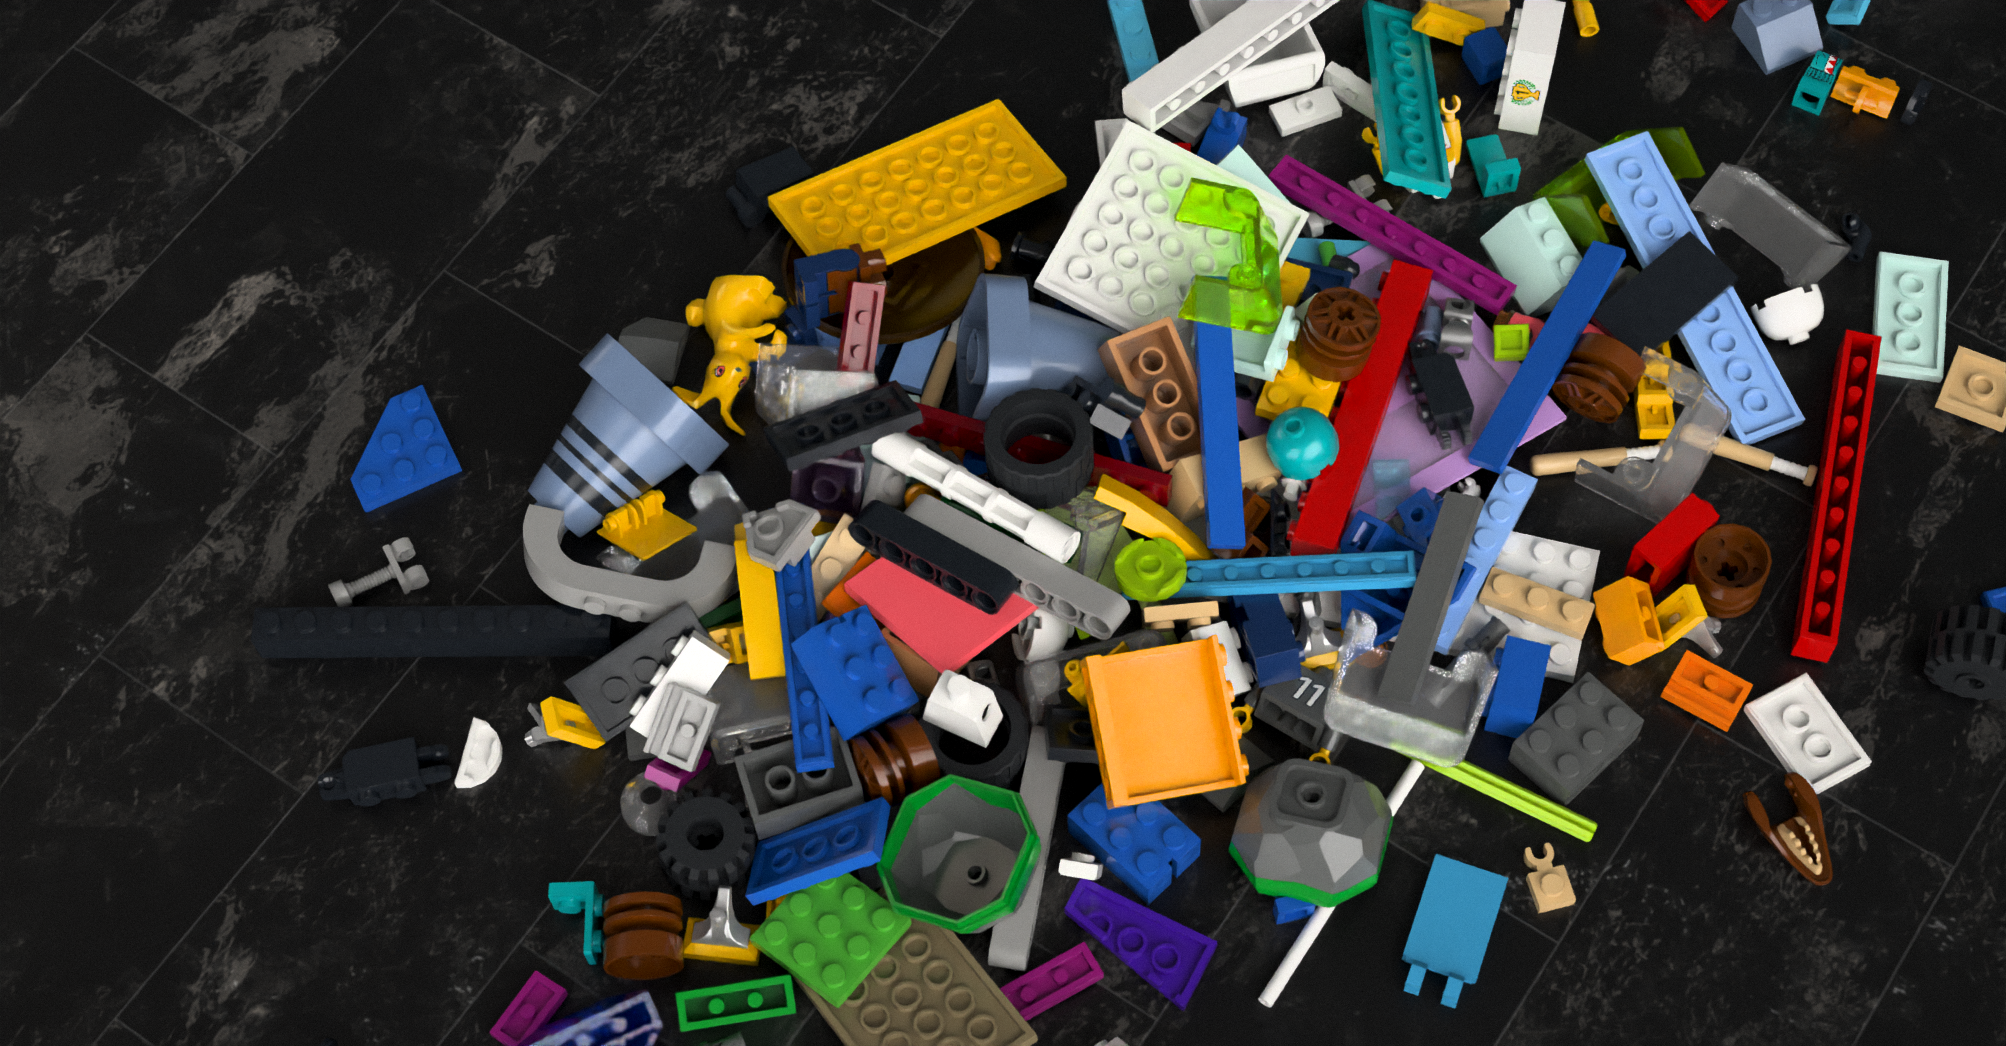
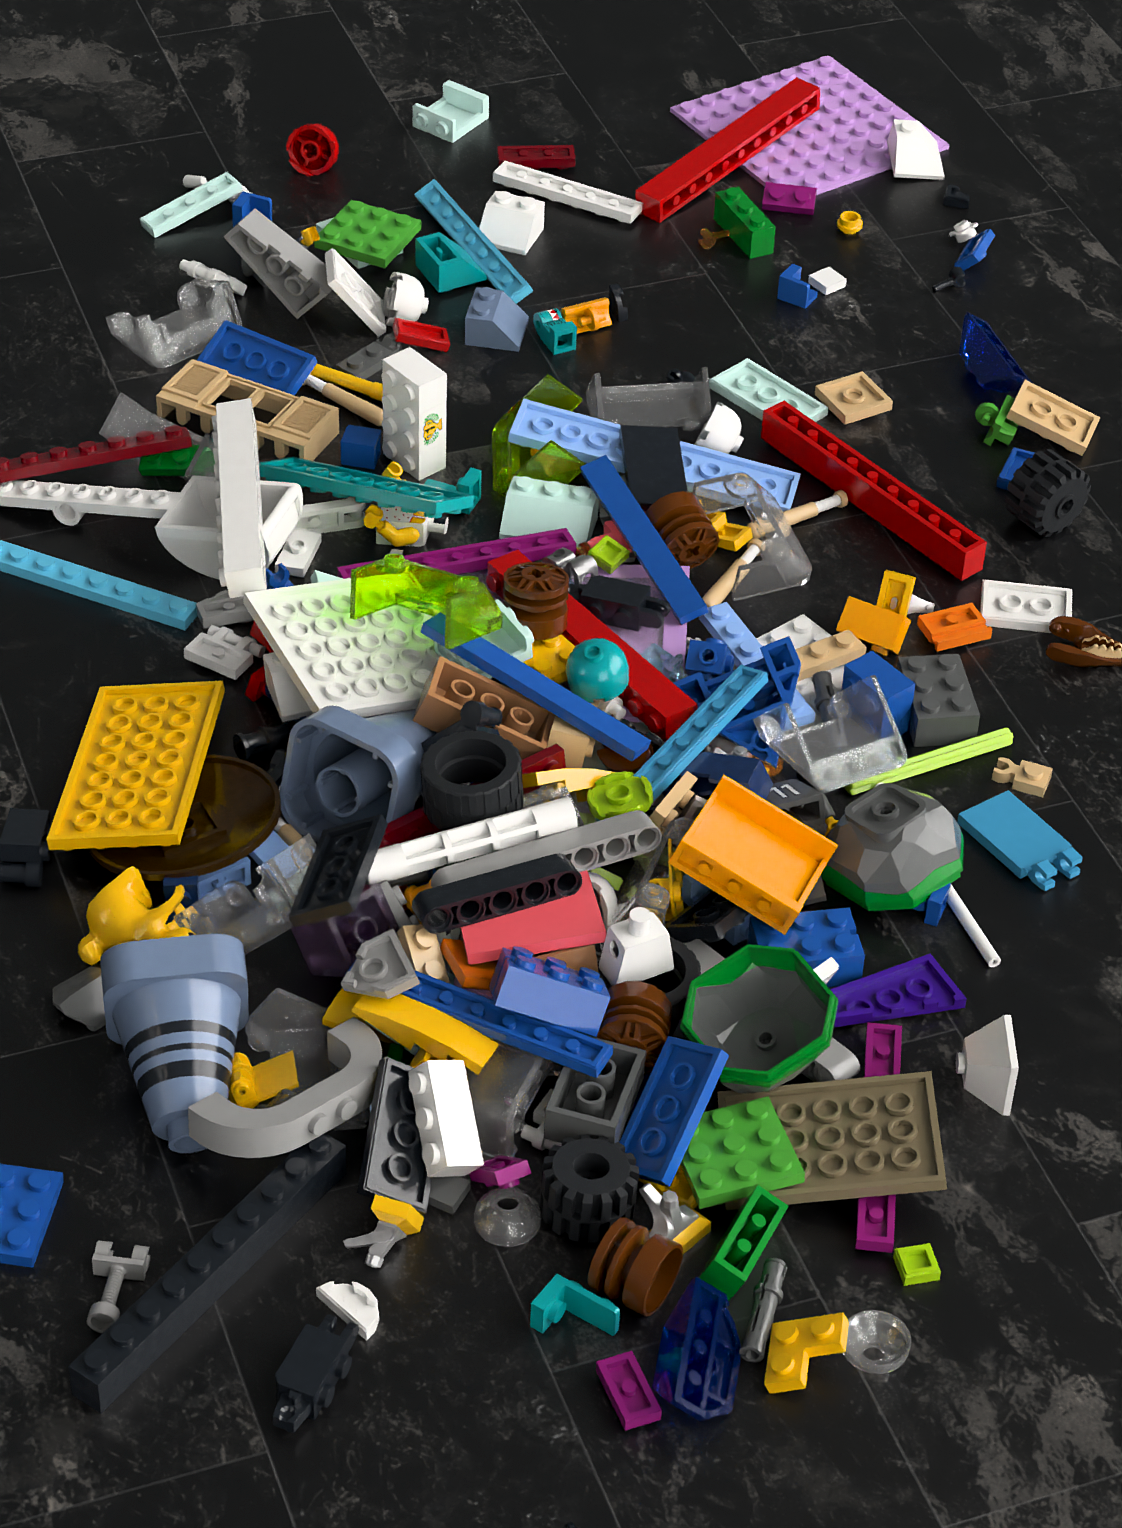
camera: 60 degrees left, 20 degrees down
(682, 726) = (484, 1129): plate -> none
(824, 280) = (192, 828): hips -> none
(860, 326) = (241, 833): plate -> none
(1430, 598) = (788, 675): dark grey tile -> none
(1446, 23) = (319, 444): yellow plate -> none
(1671, 543) = (838, 570): red brick -> none
(1729, 569) = (878, 549): reddish brown wheel -> none

